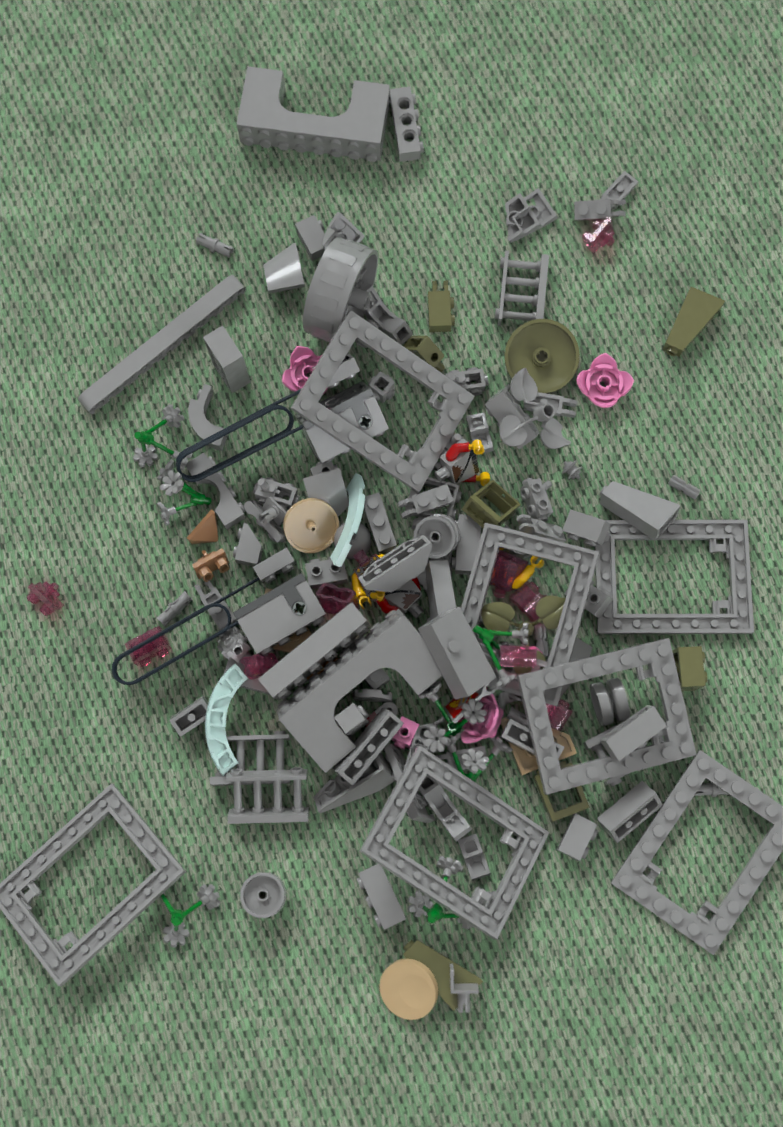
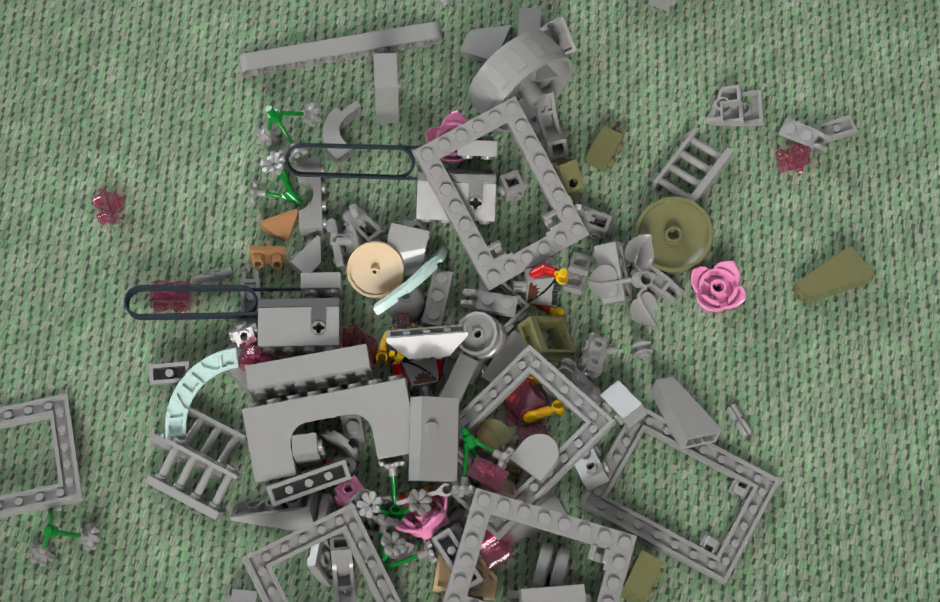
camera: 25 degrees right, 10 degrees down
(274, 900) = (139, 573): light grey wheel -> none
(325, 572) = (362, 314): light grey brick -> none
(550, 617) = (537, 456): none -> light grey tile

